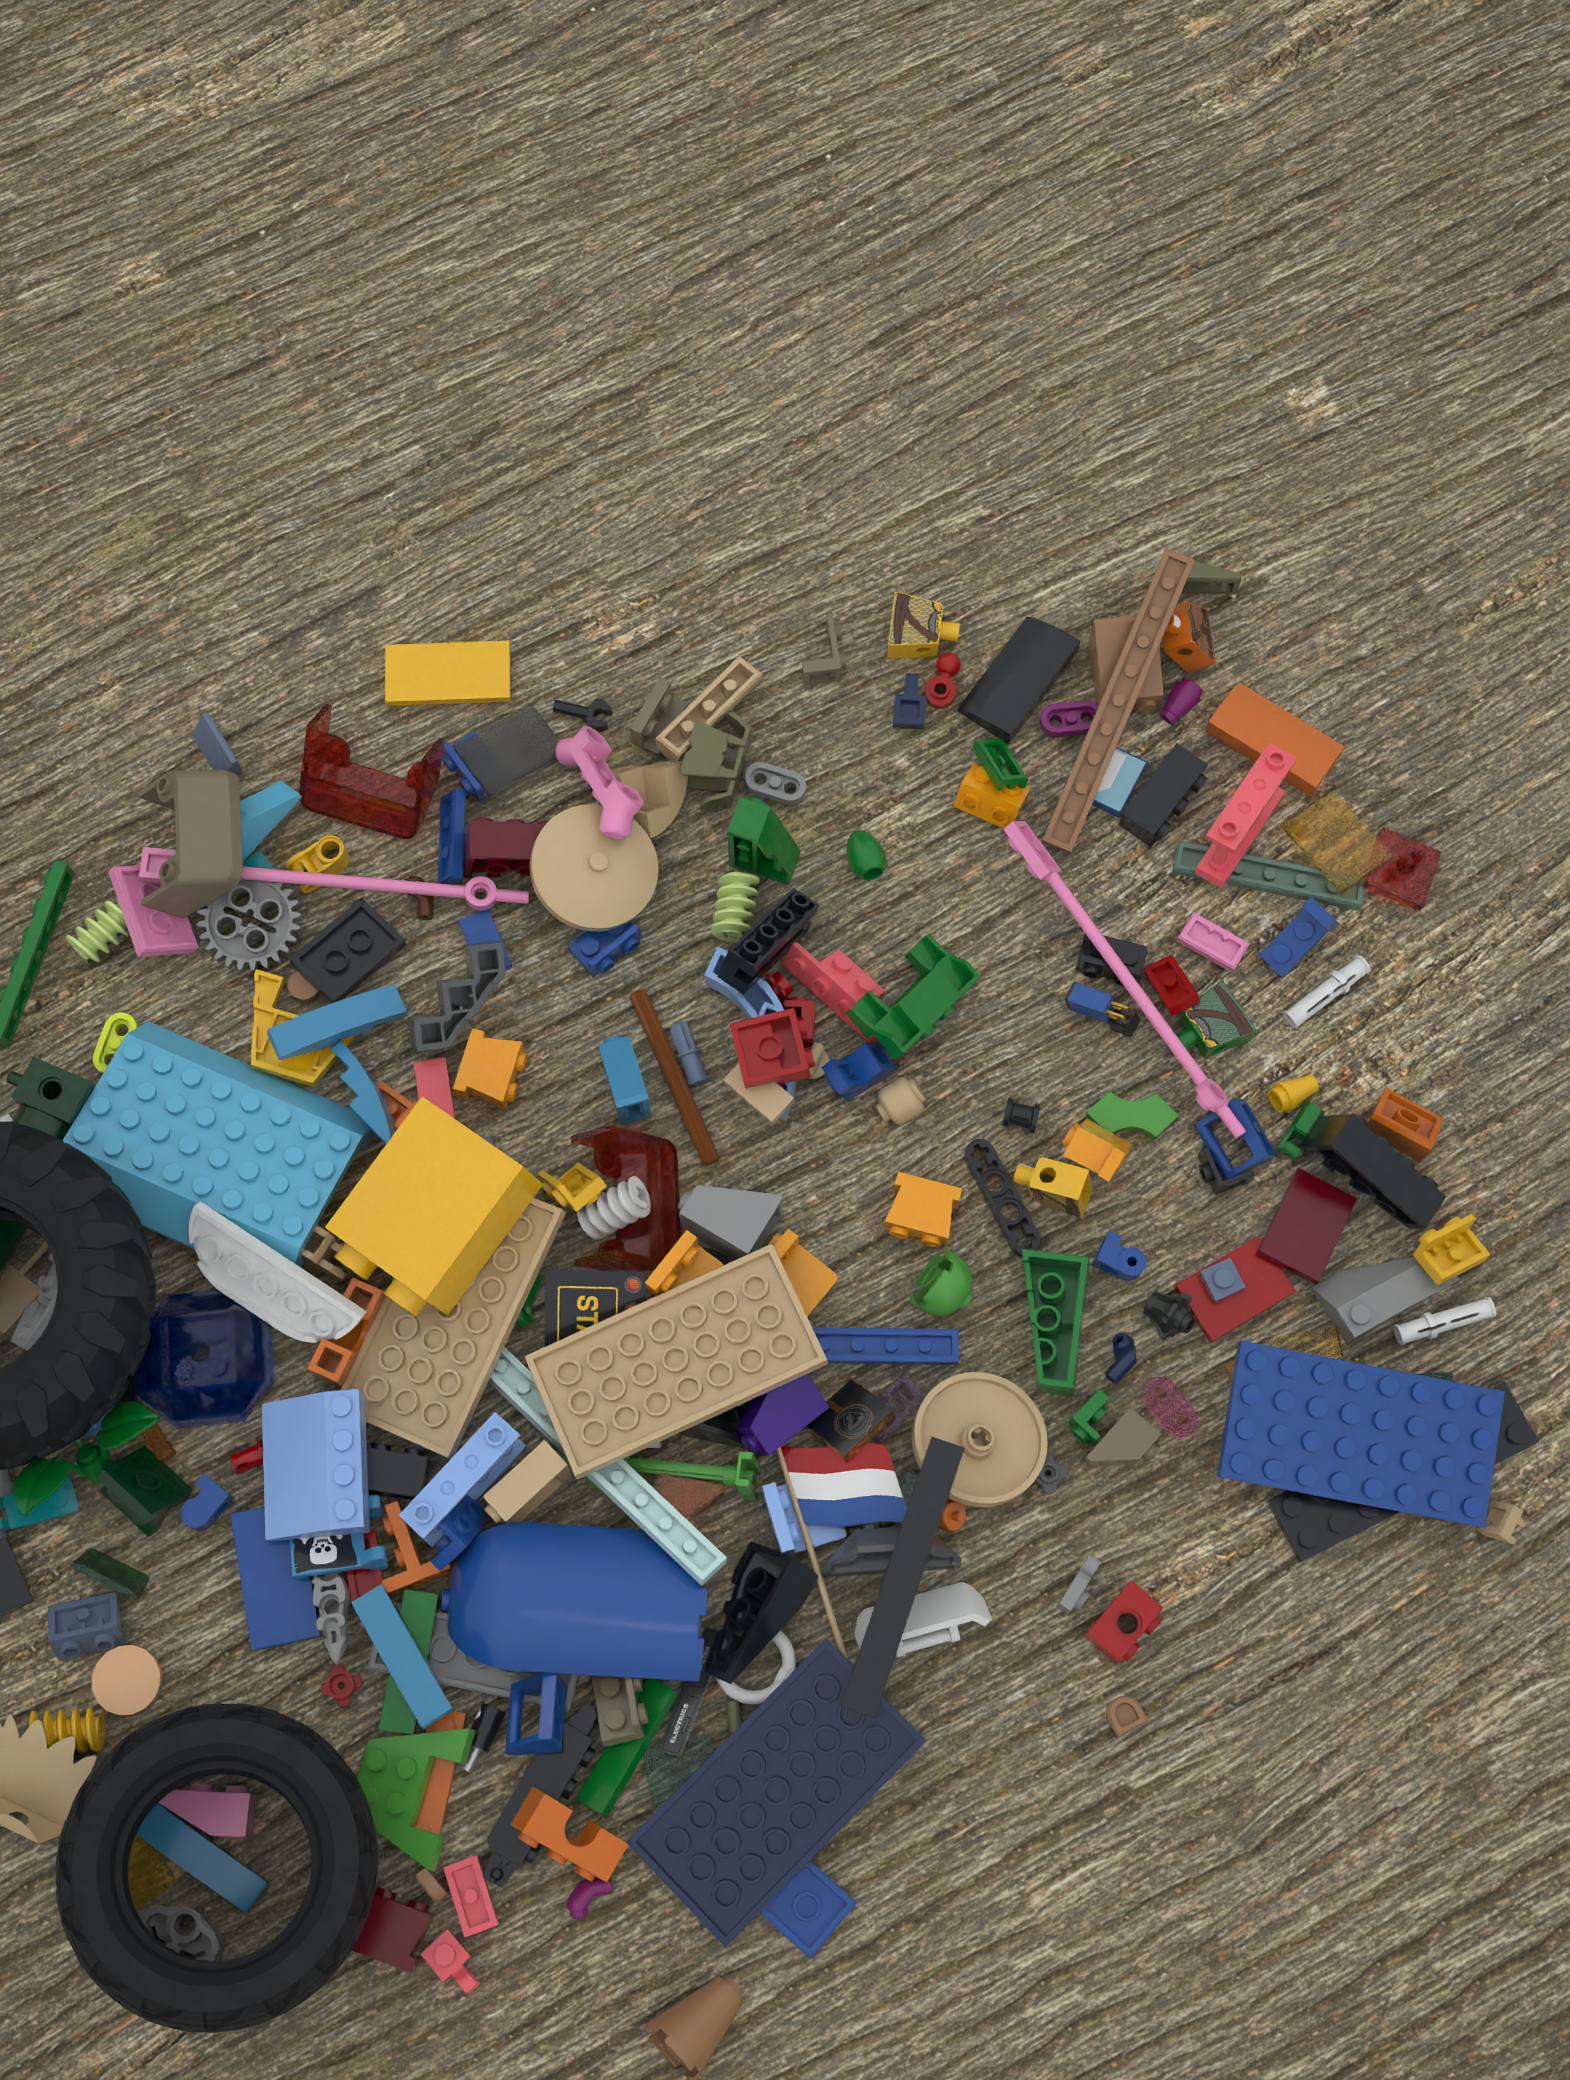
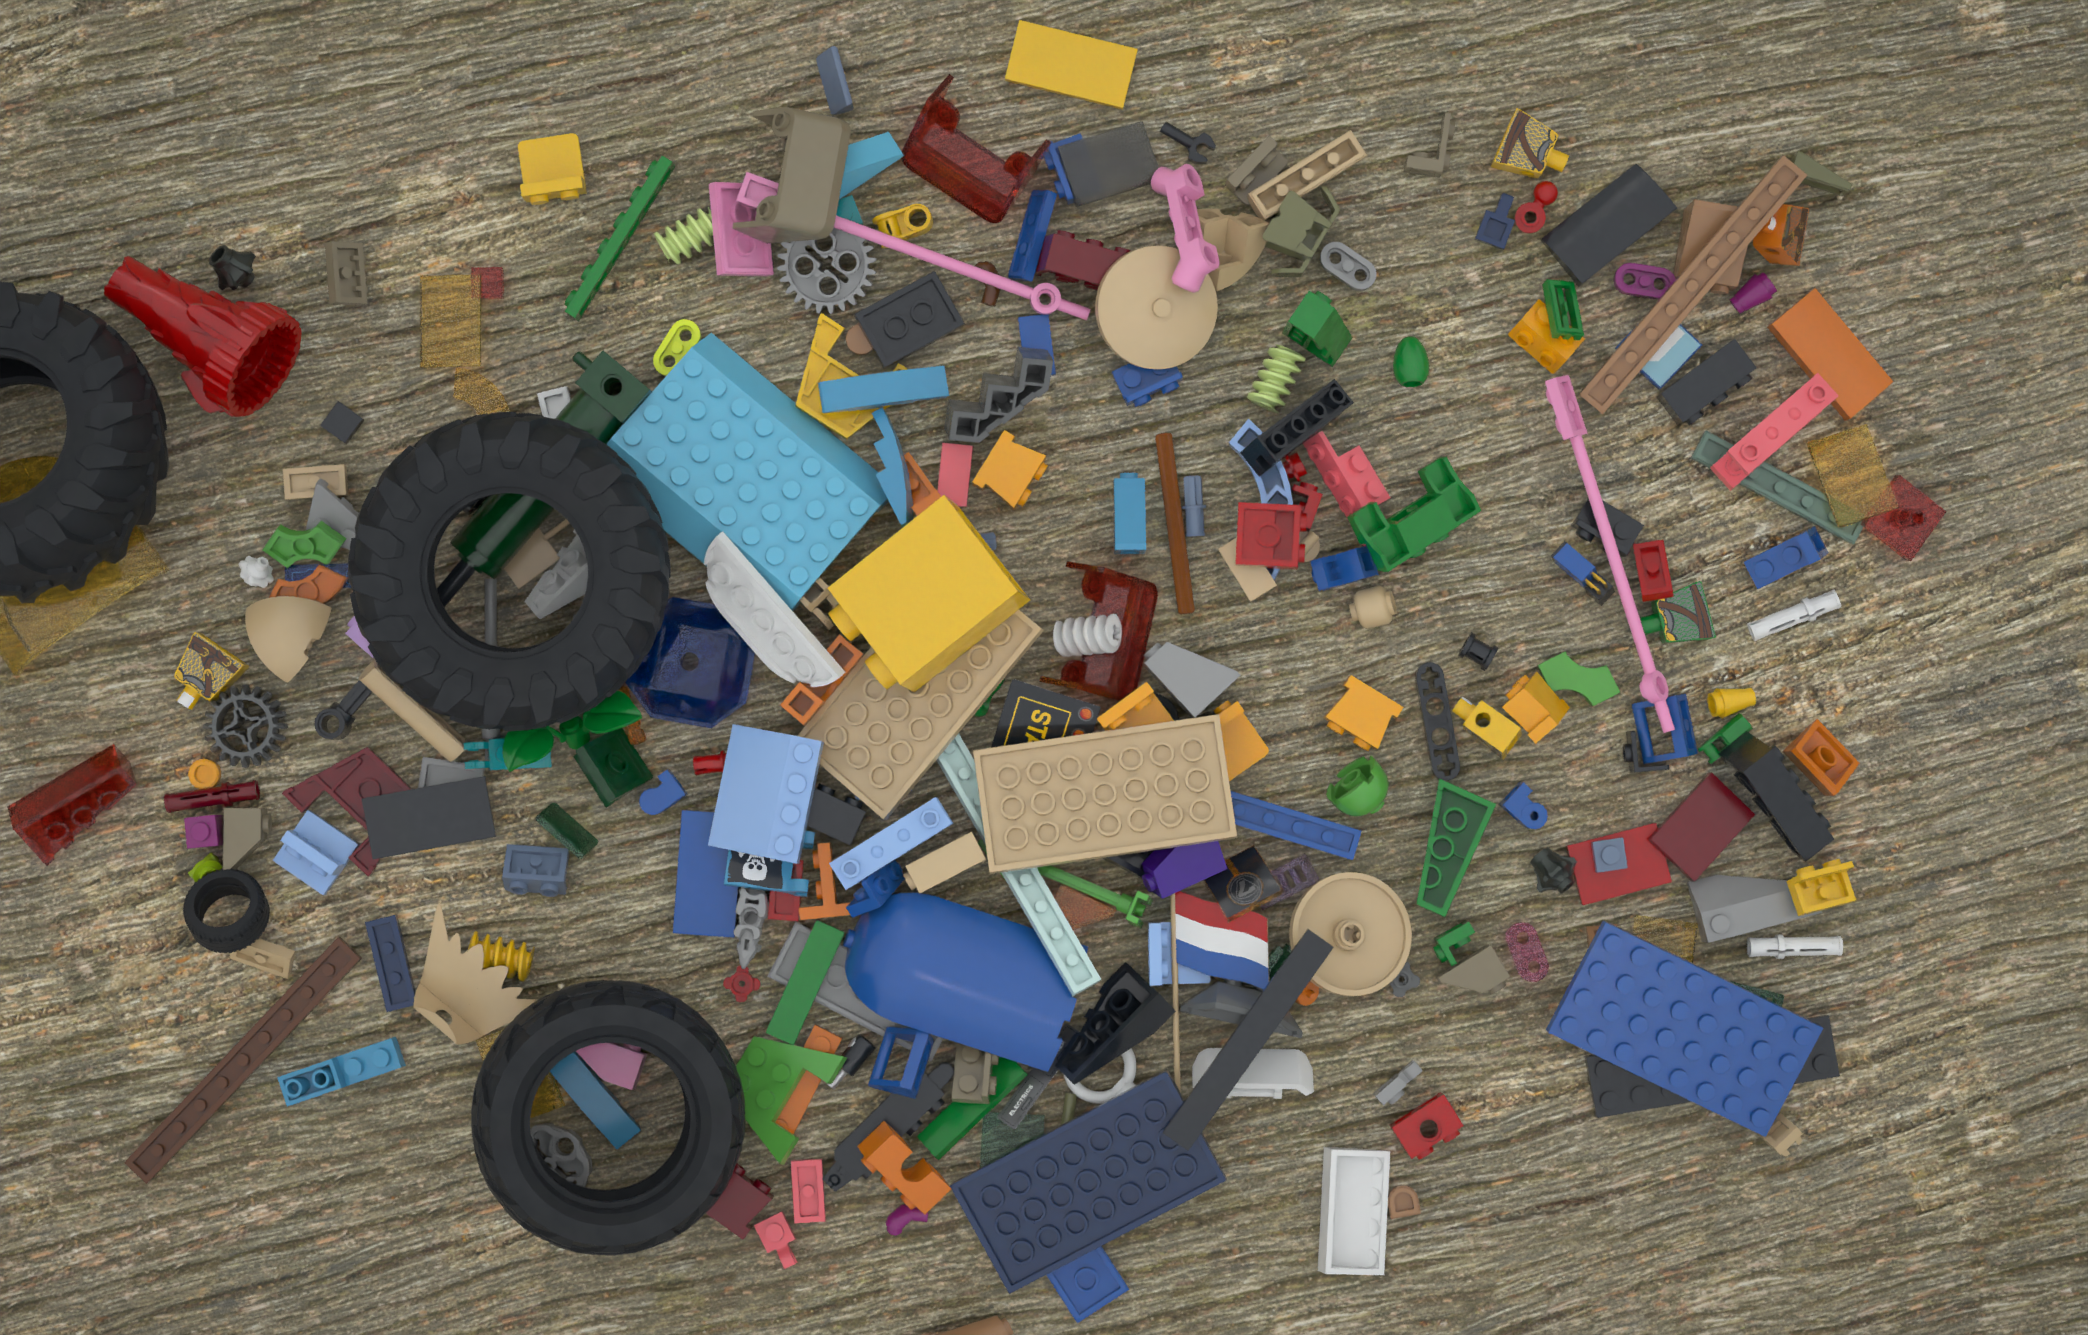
camera: 15 degrees right, 15 degrees up
(127, 1680) = (560, 926): light nougat tile -> none
(402, 1656) = (801, 979): dark azure slope -> none
(431, 1884) = (777, 1172): medium nougat tile -> none
(574, 1188) = (1056, 605): yellow bracket -> none
(1075, 1741) = (1353, 1211): none -> white slope
(1124, 1357) = (1500, 897): dark blue arm -> none
(1213, 942) = (1705, 538): bright pink plate -> none

